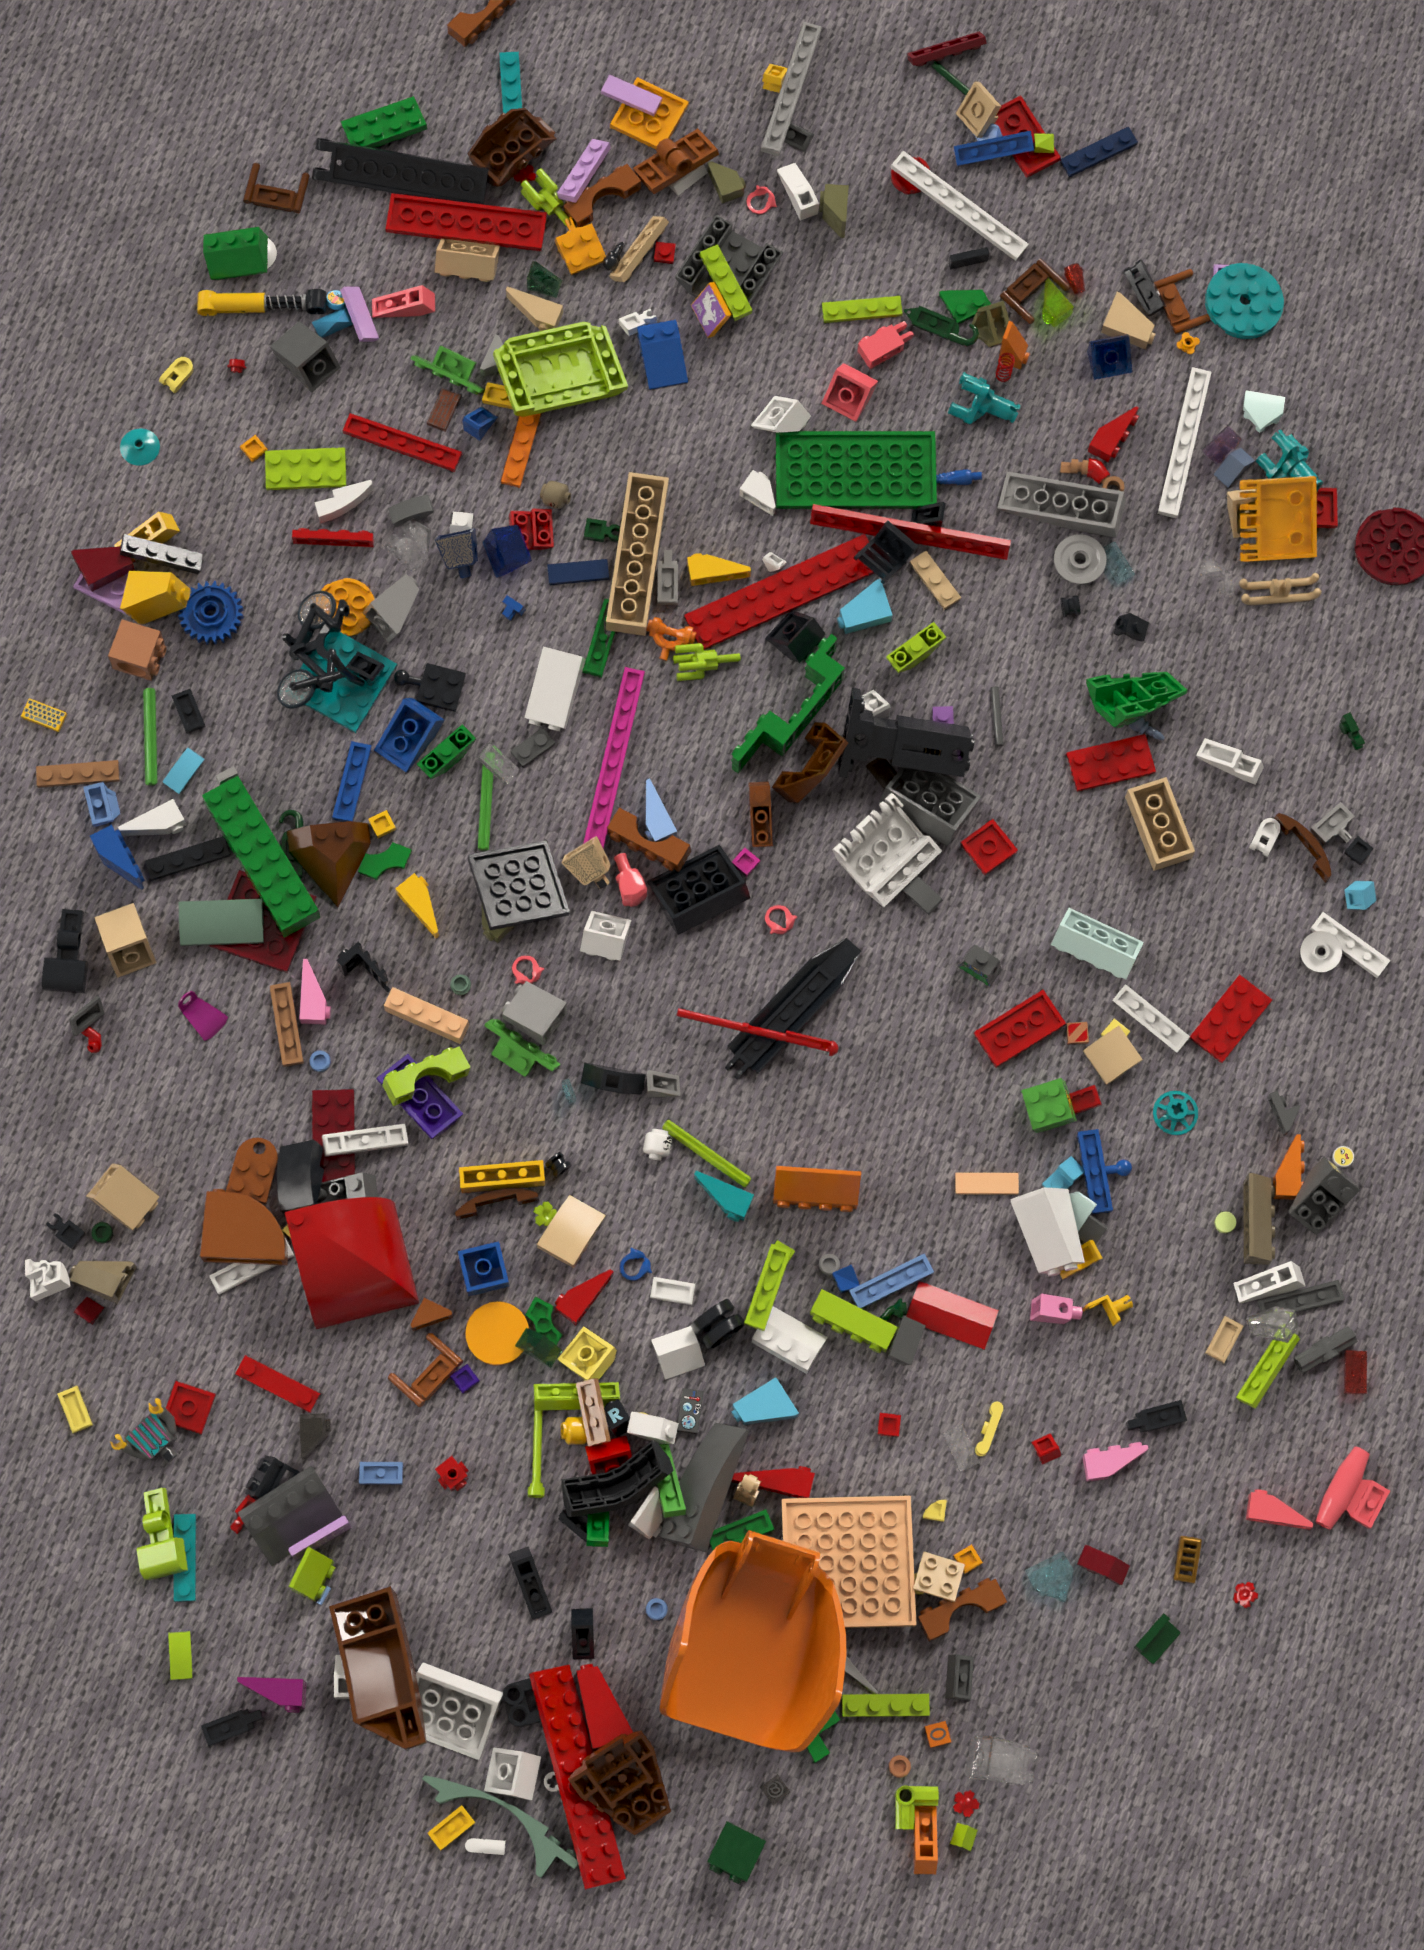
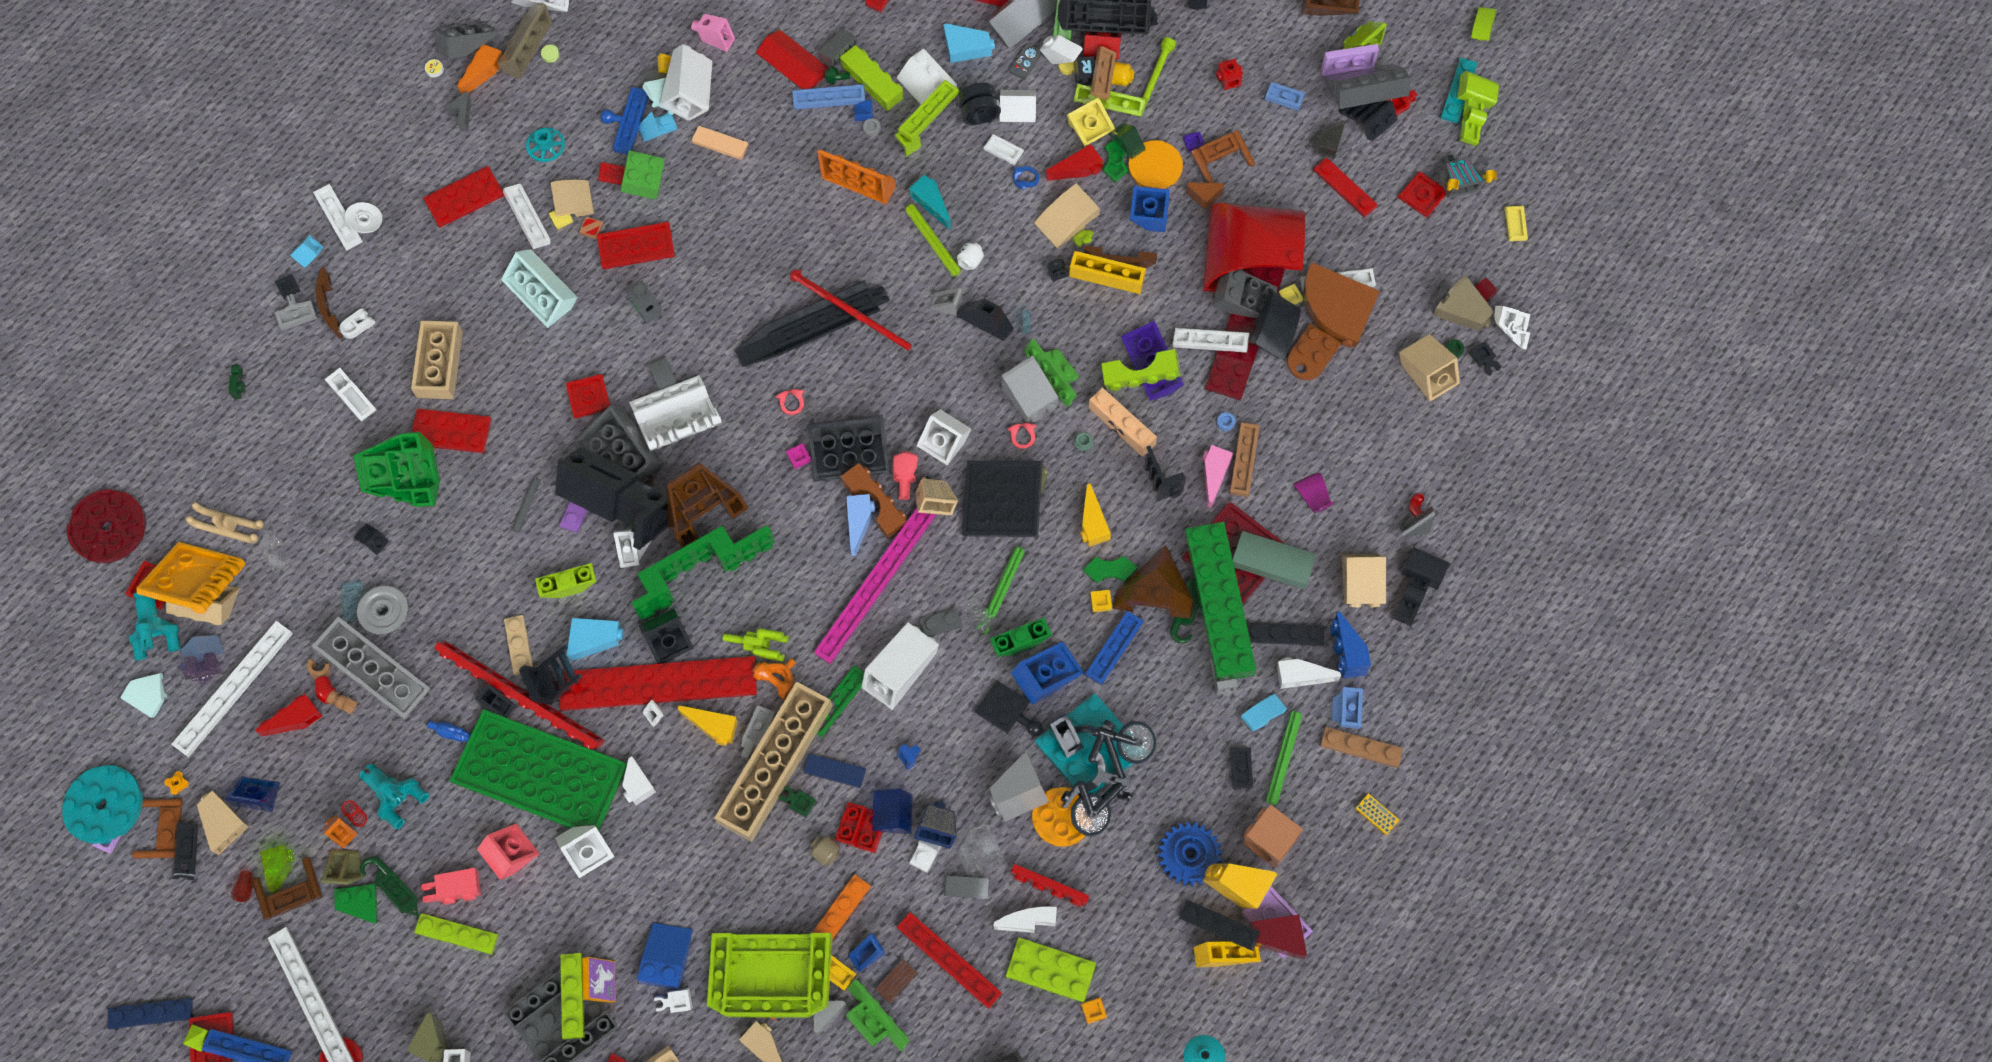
camera: 155 degrees left, 5 degrees down
(760, 814) = (766, 493): dark orange slope -> none
(969, 258) = (332, 945): black tile -> none
(1070, 606) = (413, 574): black wheel -> none
(1111, 1308) = (668, 21): yellow bracket -> none

